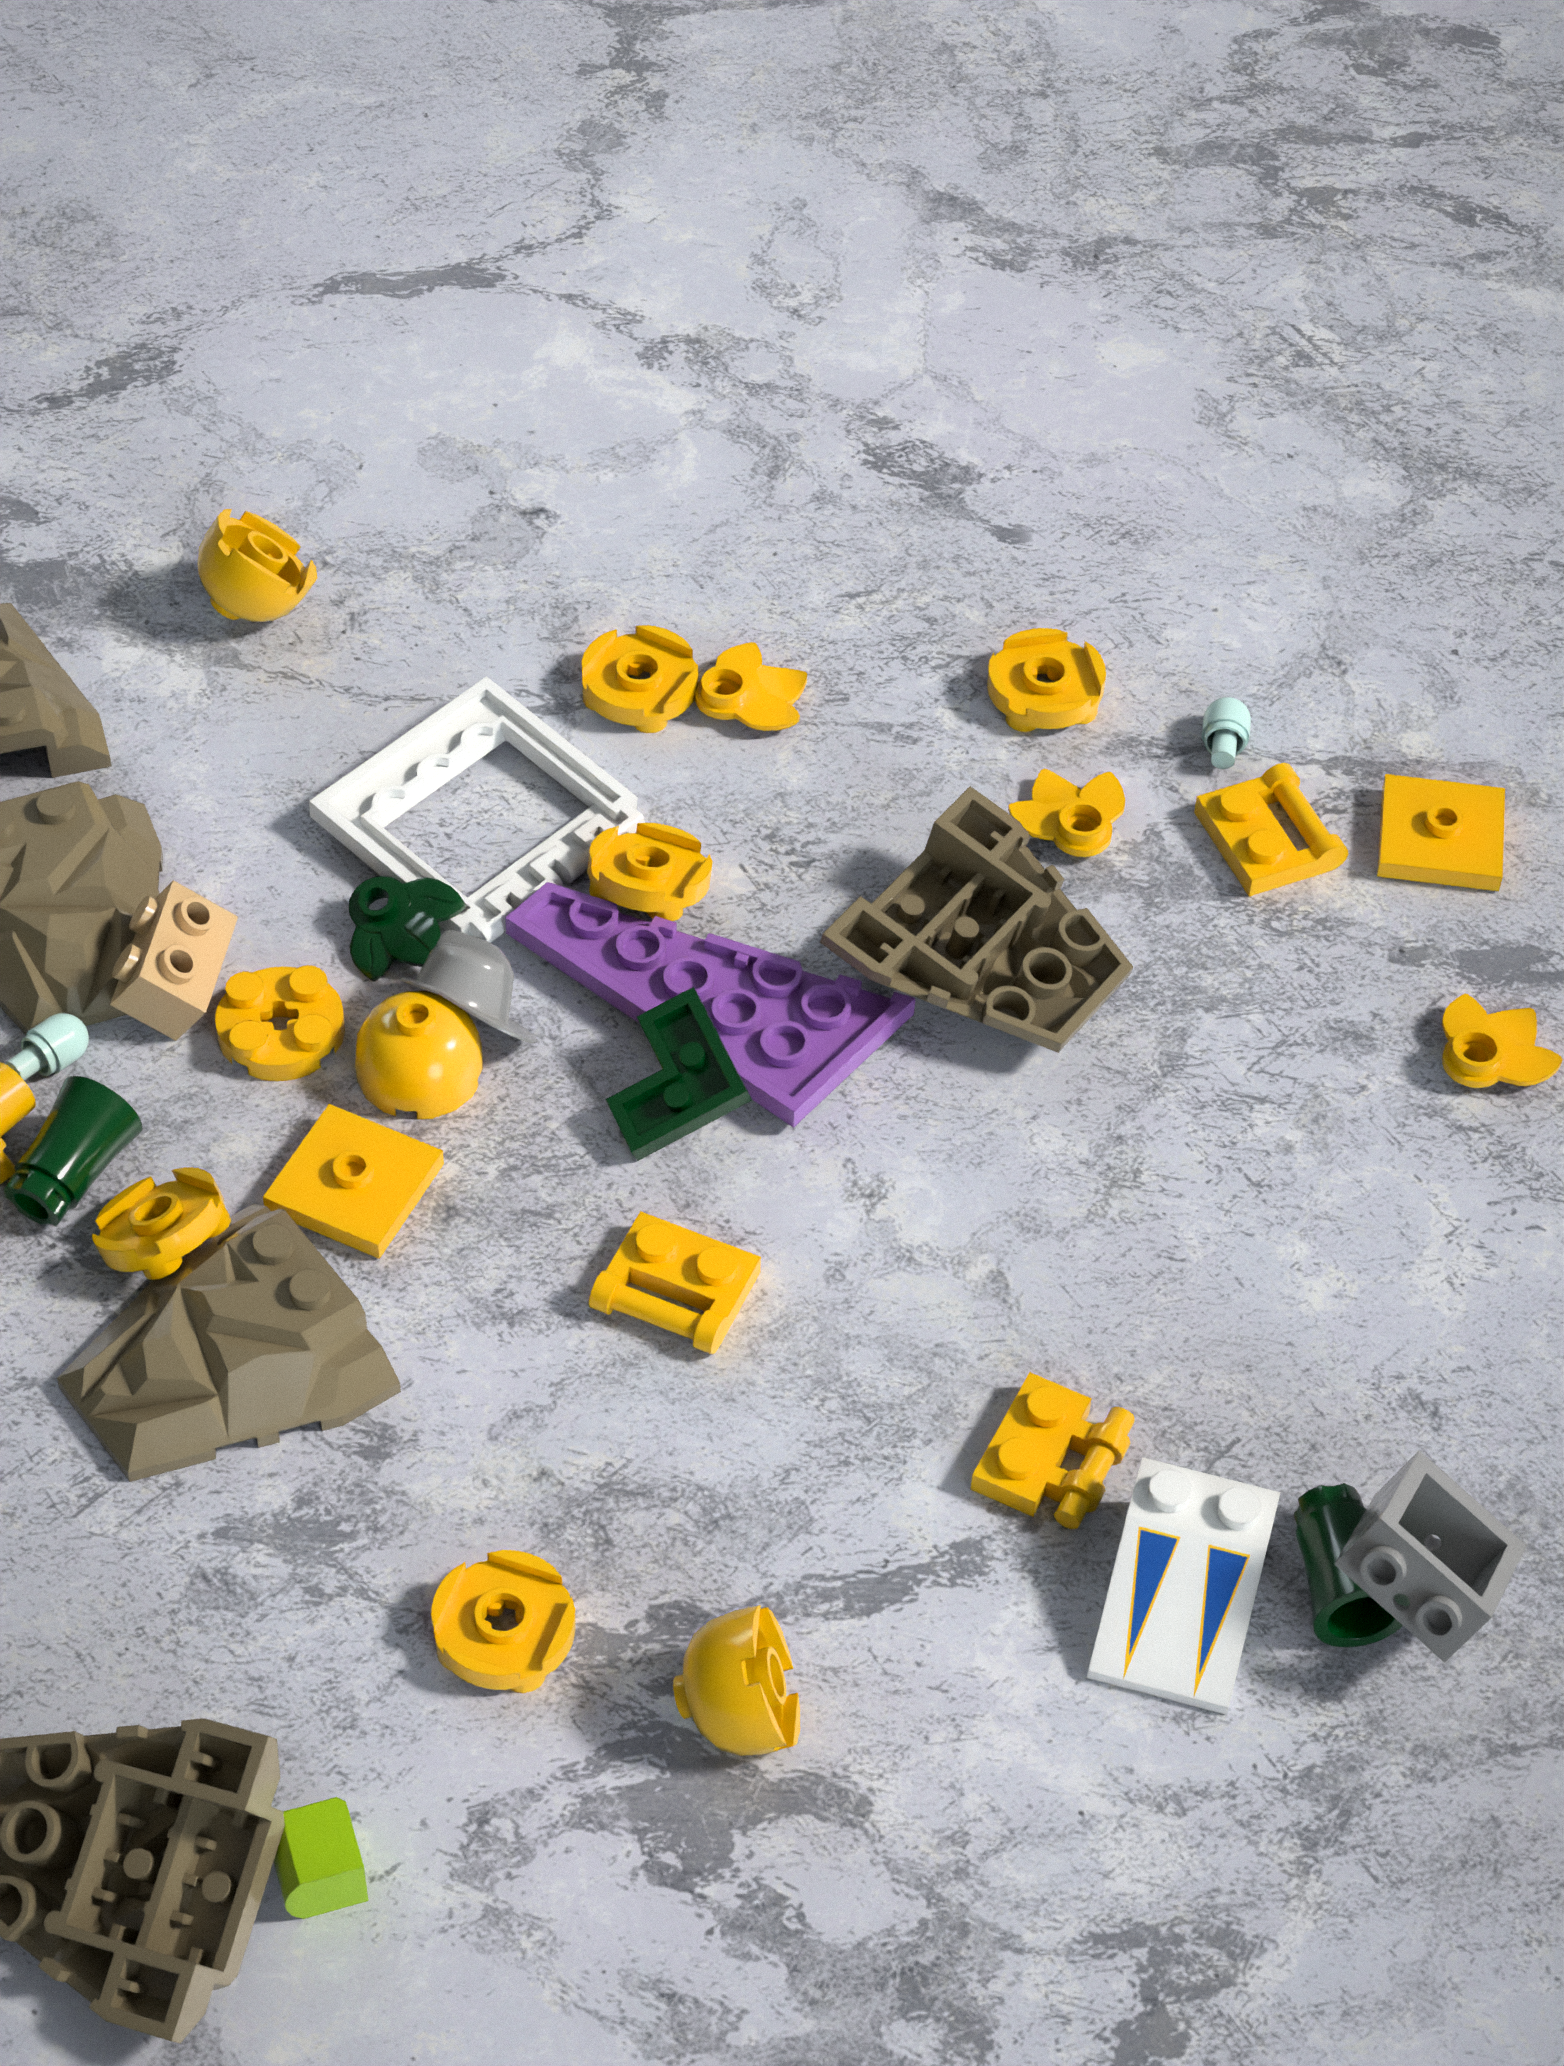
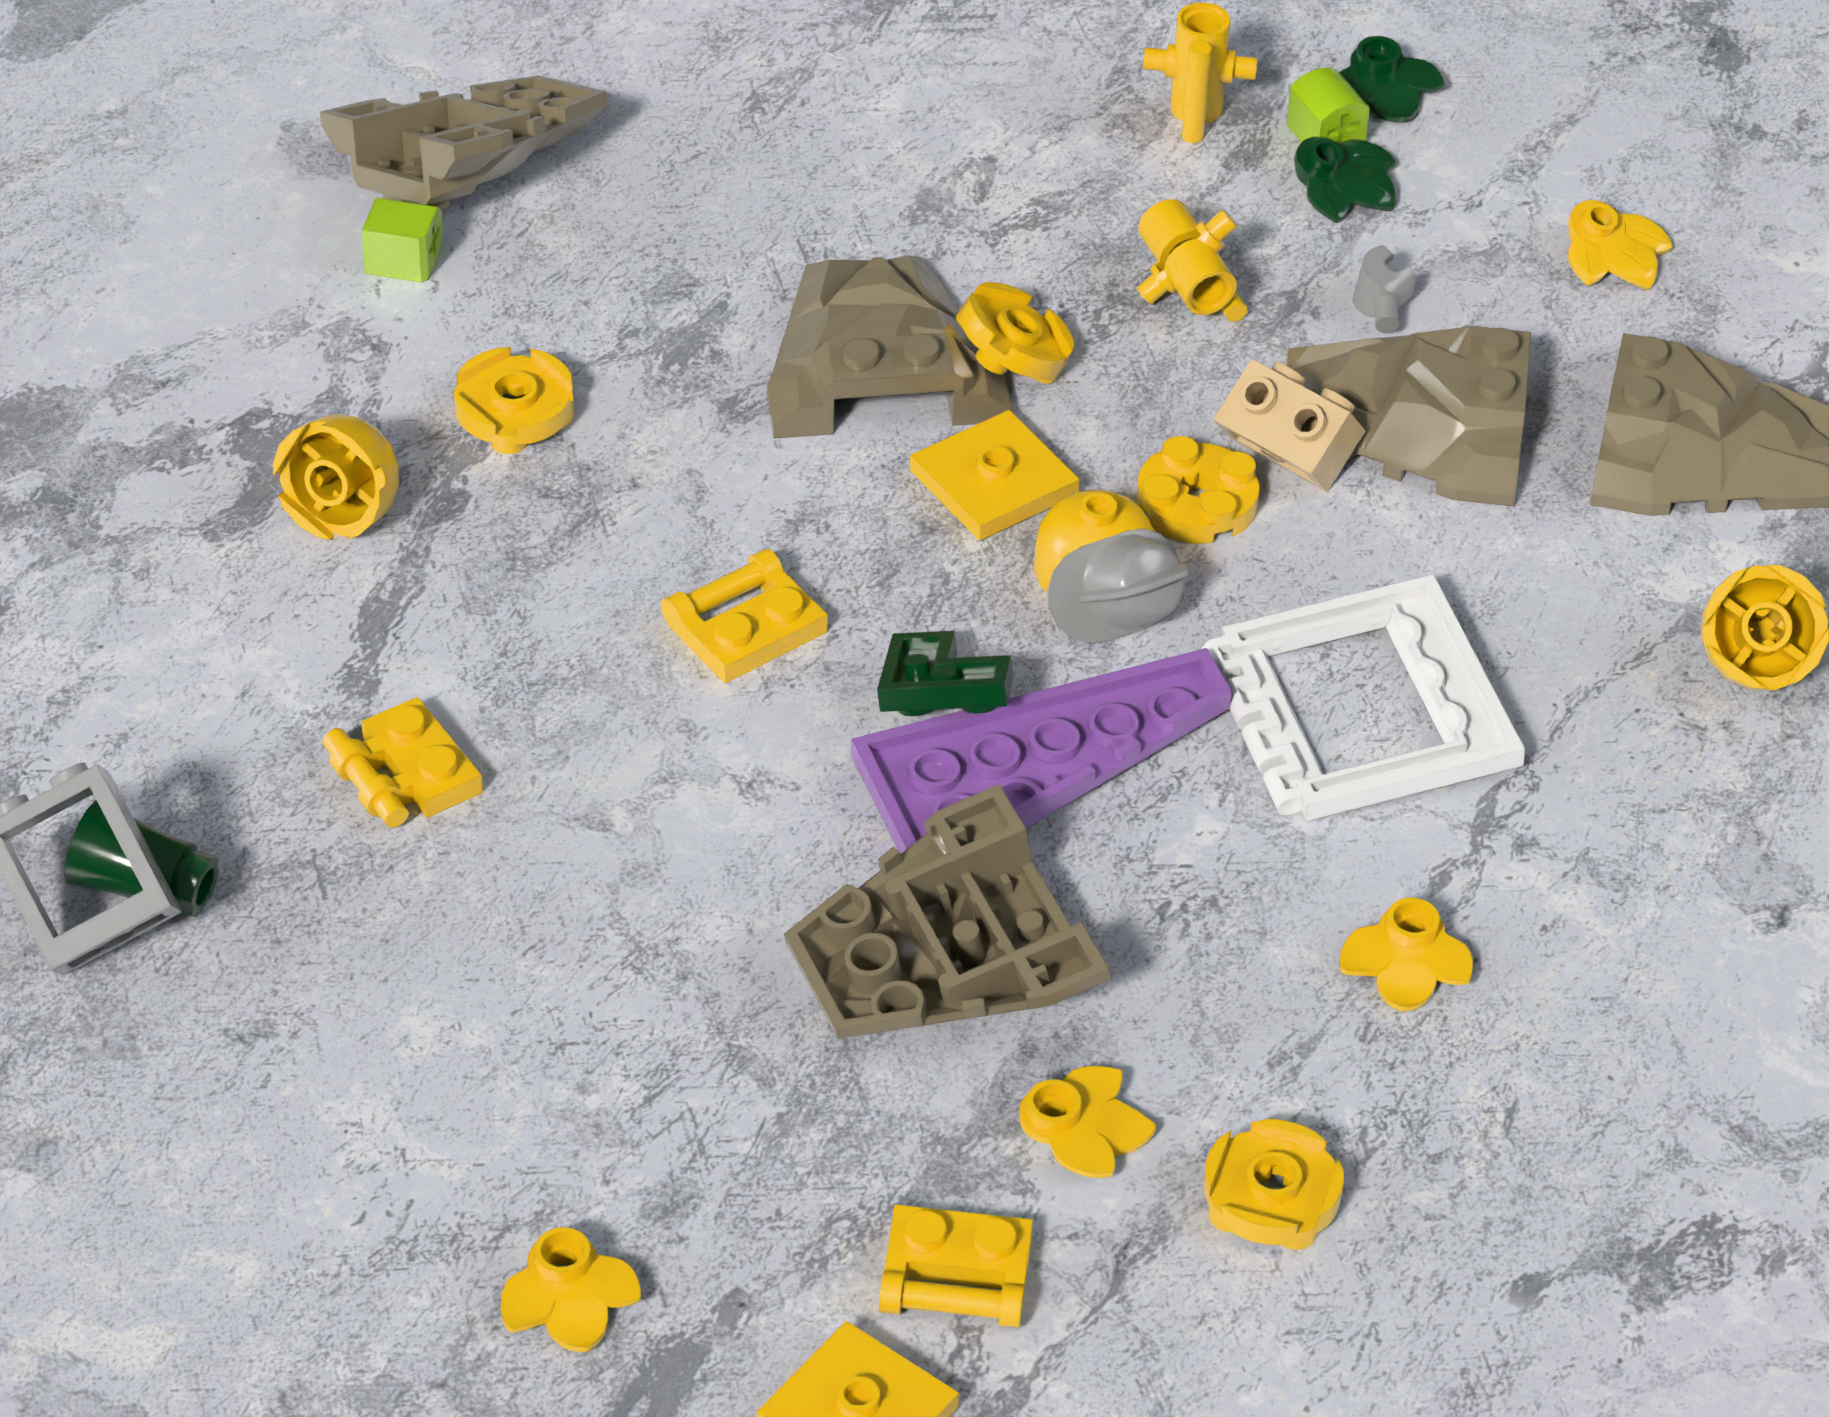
camera: 120 degrees right, 5 degrees down
(51, 1046) = (1257, 342): light aqua cylinder -> none
(71, 1149) = (1132, 317): dark green plant -> none
(404, 927) = (1257, 592): dark green plate -> none
(637, 702) = (1466, 903): yellow plate -> none
(649, 870) = (1191, 796): yellow plate -> none
(1183, 1585) = (221, 775): white slope -> none
(1226, 730) = (1108, 1296): light aqua cylinder -> none

